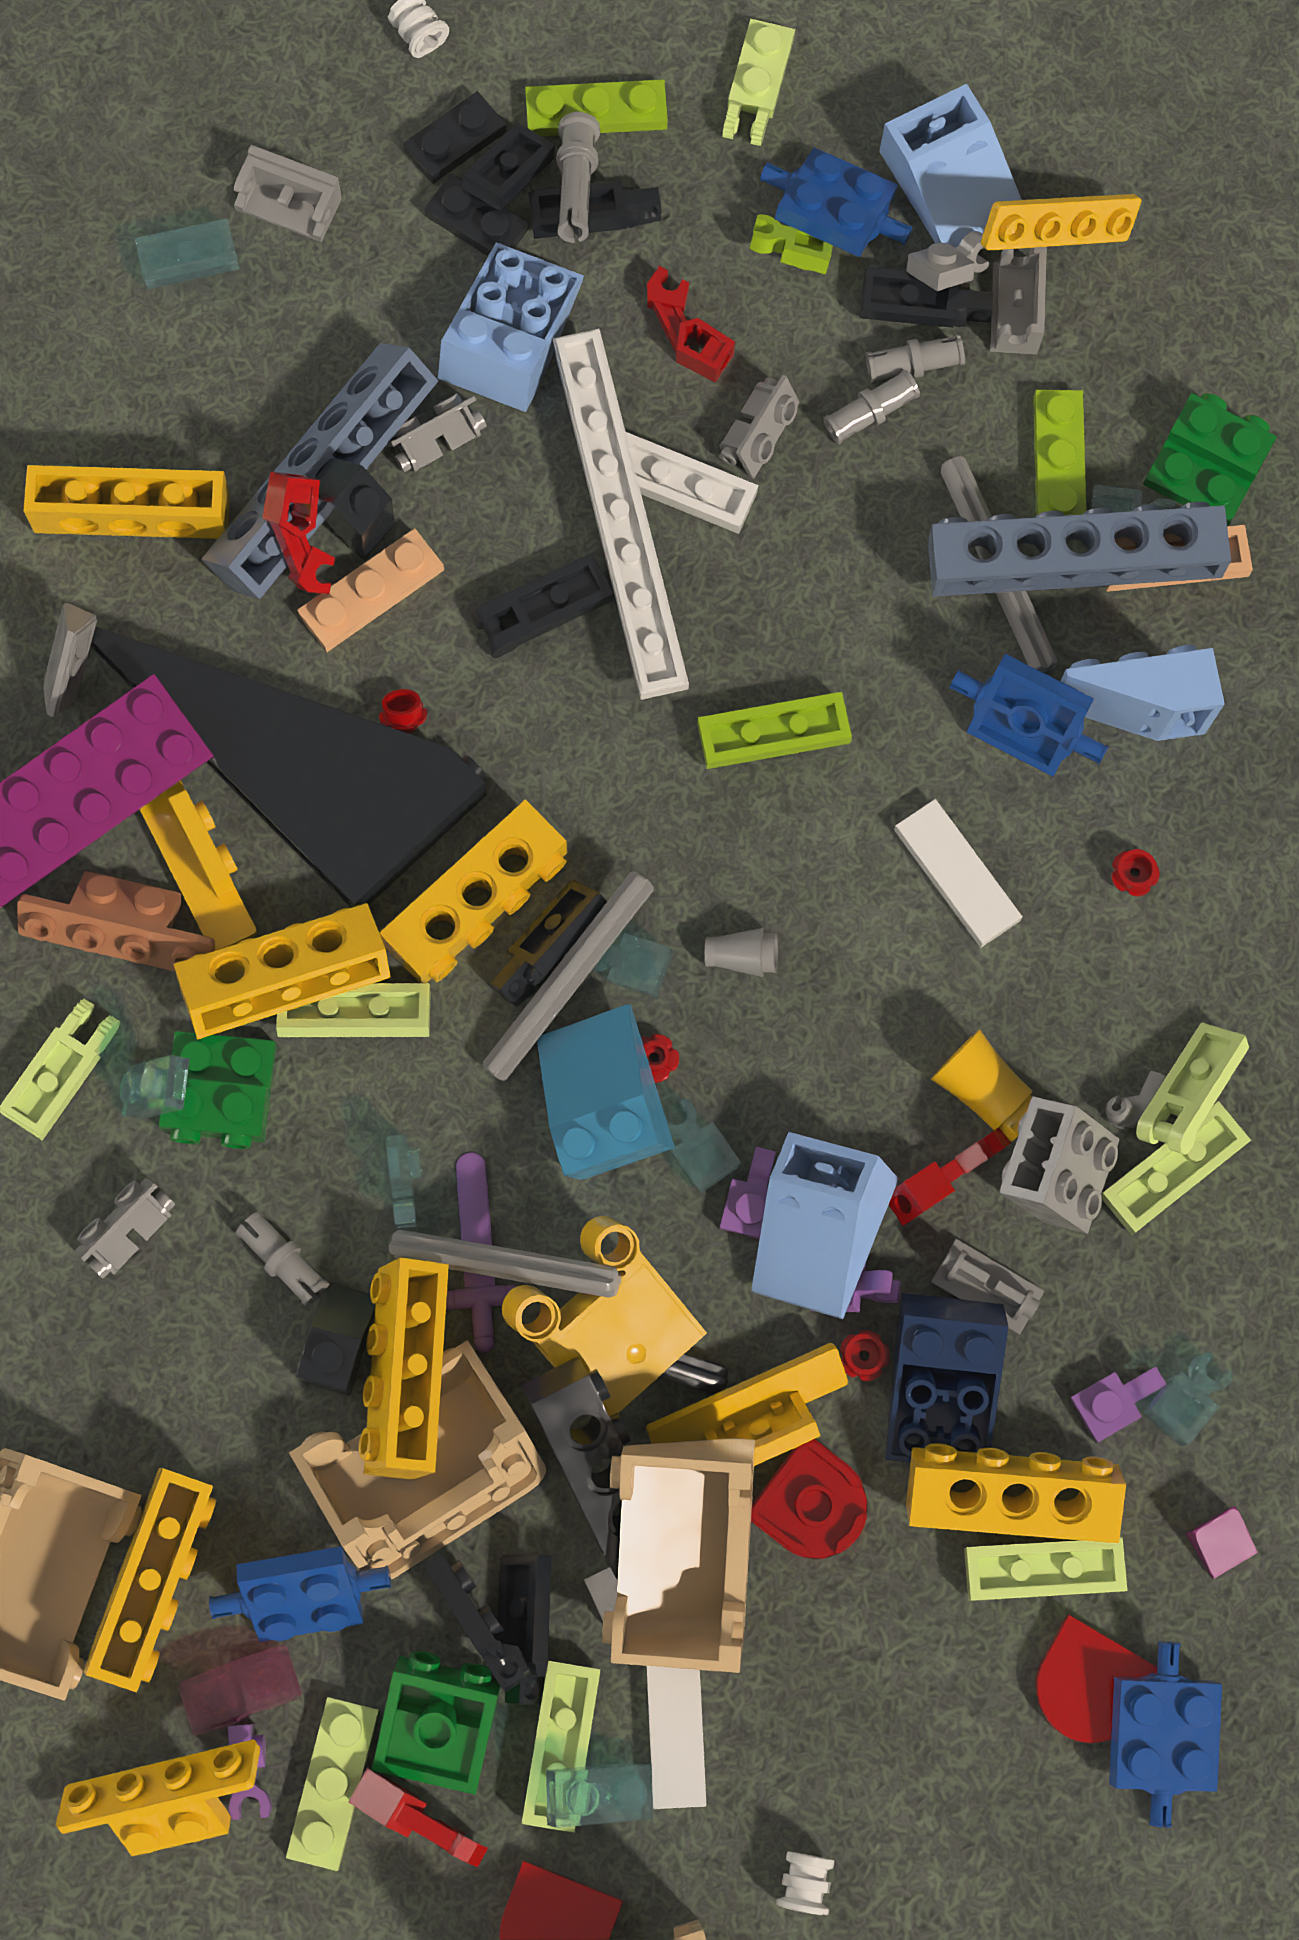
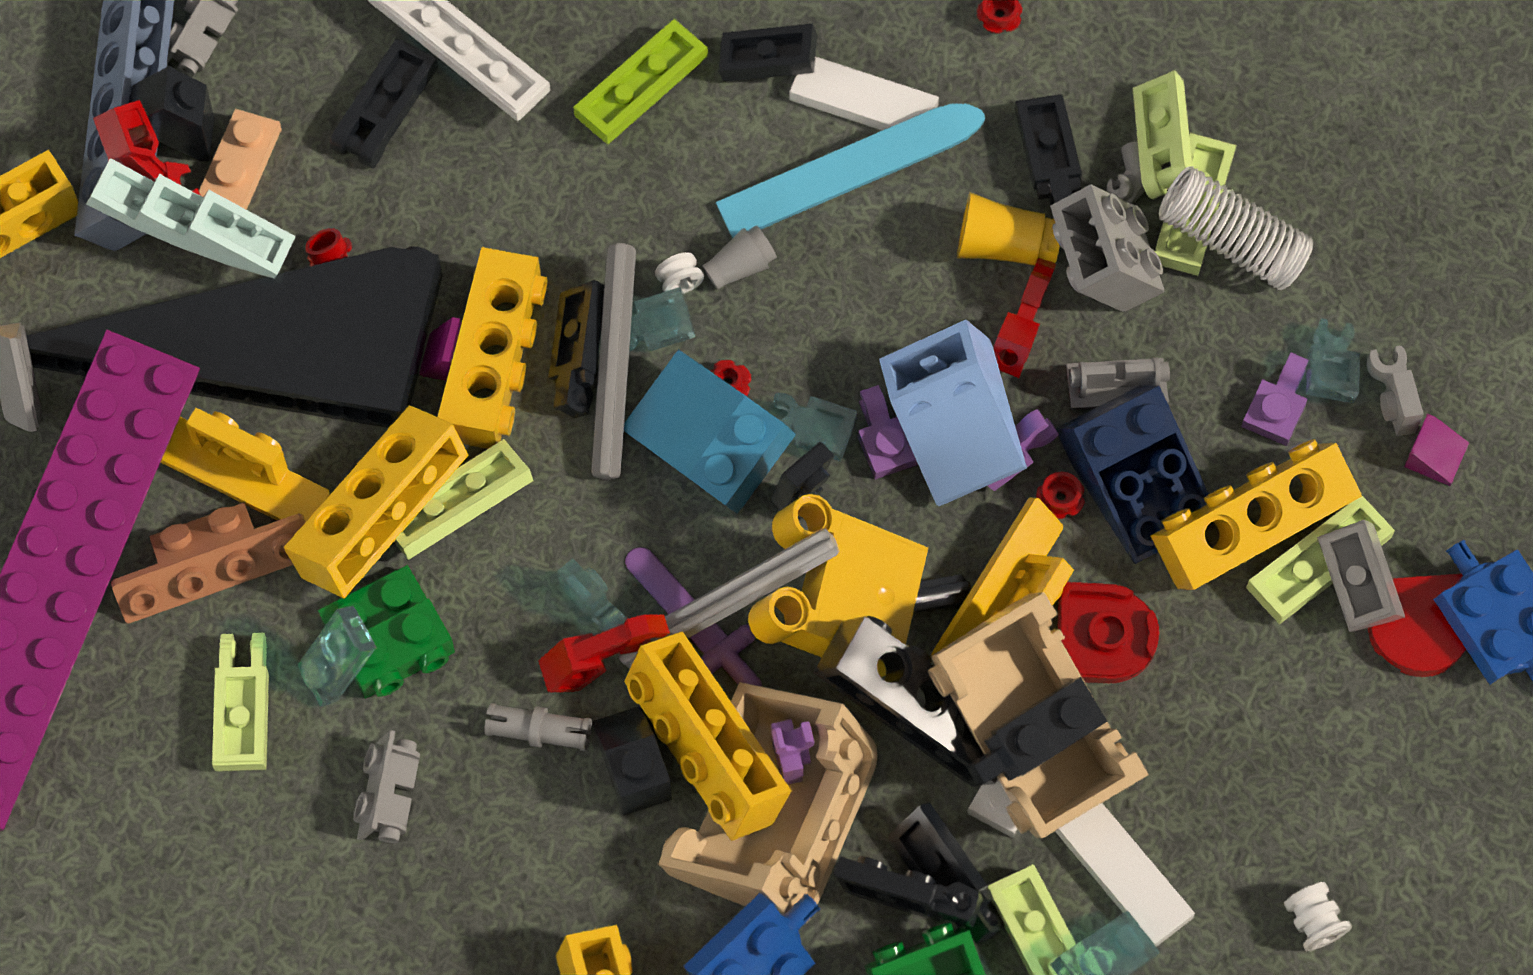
camera: 30 degrees left, 10 degrees down
(296, 615) = (191, 222): none -> light aqua slope
(357, 1228) = (579, 659): none -> red piece
(433, 865) = (440, 350): none -> magenta slope
(466, 1428) = (791, 749): none -> medium lavender plate
(638, 1205) = (803, 476): none -> black hinge
(673, 1569) = (1039, 733): none -> black hinge
(681, 932) = (679, 272): none -> white bush
(898, 931) = (850, 167): none -> medium azure piece
(901, 778) = (768, 52): none -> black plate
(1066, 1613) = (1361, 576): none -> light grey slope
(1083, 1033) = (1049, 147): none -> black hinge
(1163, 1175) = (1182, 200): none -> white piece
(1221, 1475) = (1400, 400): none -> light grey plate

